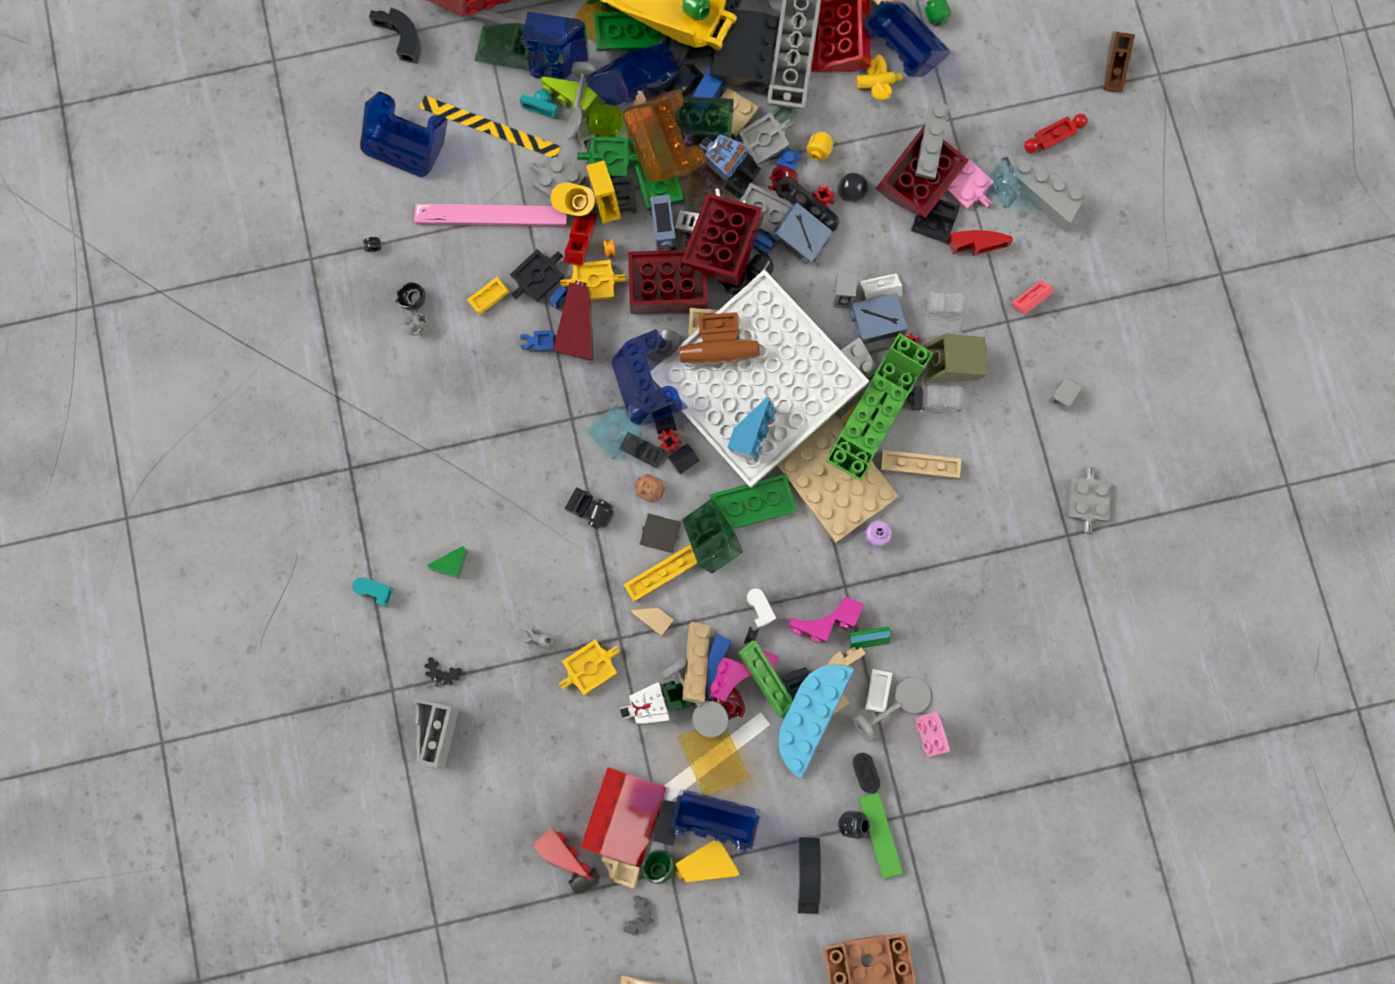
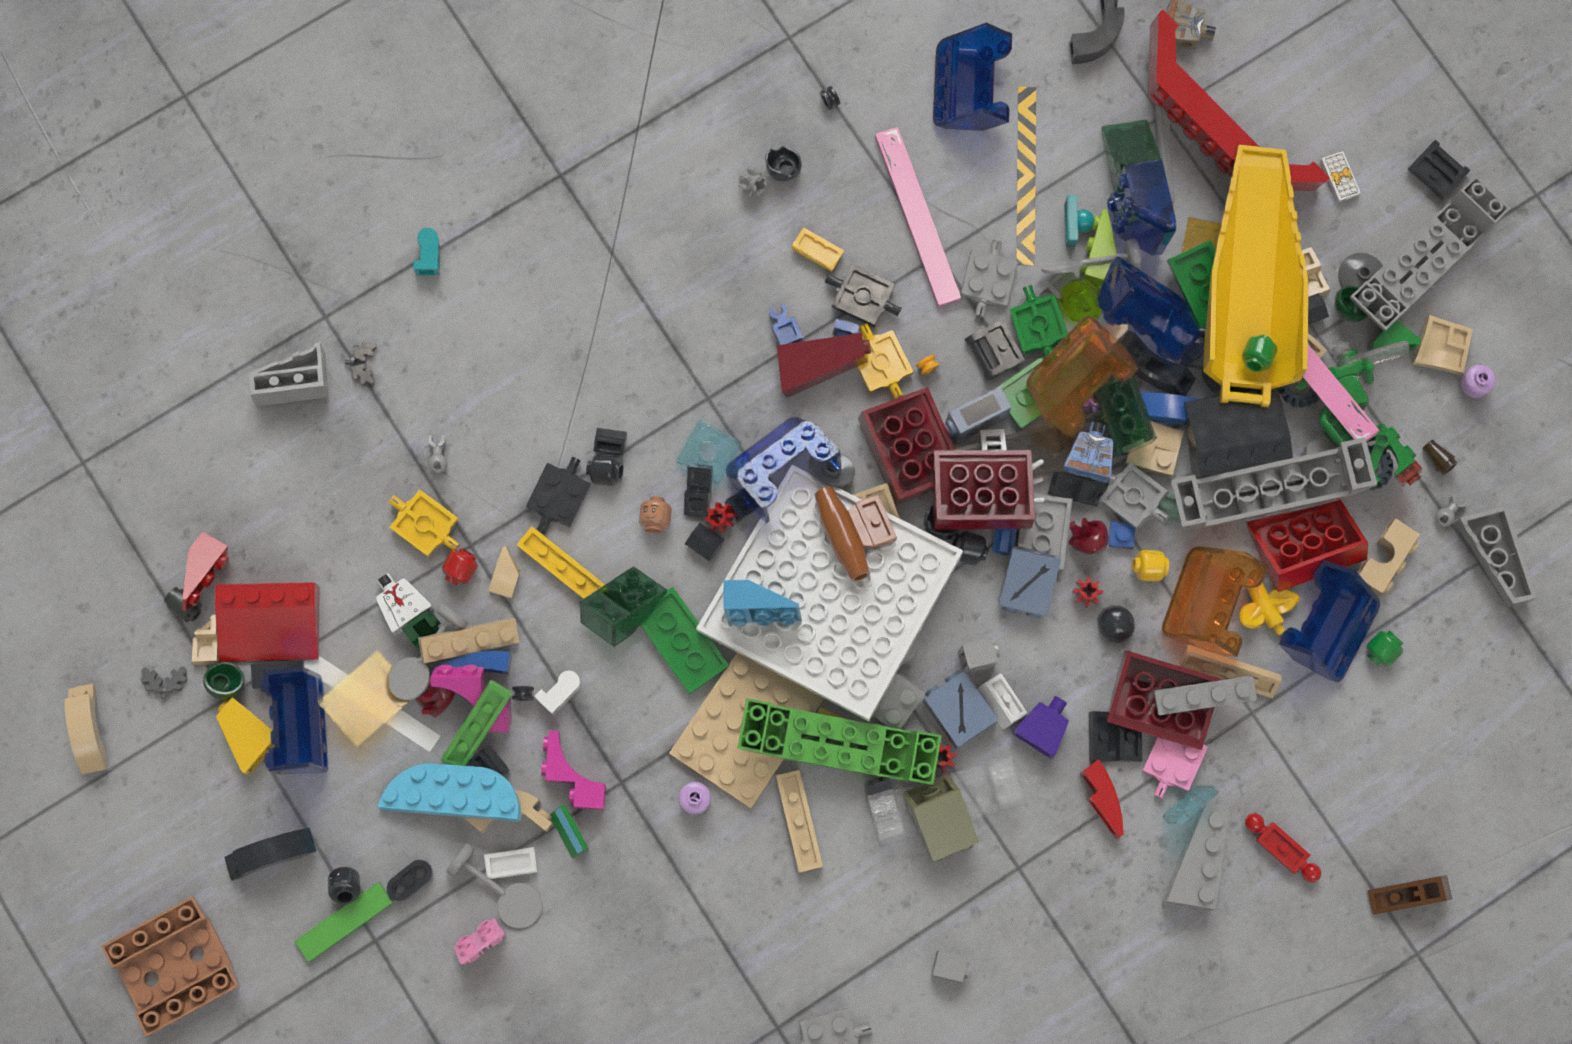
camera: 60 degrees right, 0 degrees up
(451, 563) = (487, 326): green slope -> none
(572, 199) = (967, 300): yellow piece -> none
(580, 239) = (927, 327): red slope -> none
(603, 192) = (990, 331): yellow slope -> none
(605, 556) = (558, 495): none -> black plate
(634, 650) = (460, 566): none -> red head
(660, 533) = (608, 547): clear smoke piece -> none
(810, 201) = (1072, 577): black beam -> none
(858, 116) = (1208, 596): none -> clear orange windscreen
(912, 264) = (1044, 727): none -> dark purple torso
(914, 122) = (1226, 668): none -> tan plate
(1032, 297) = (1058, 887): coral plate -> none

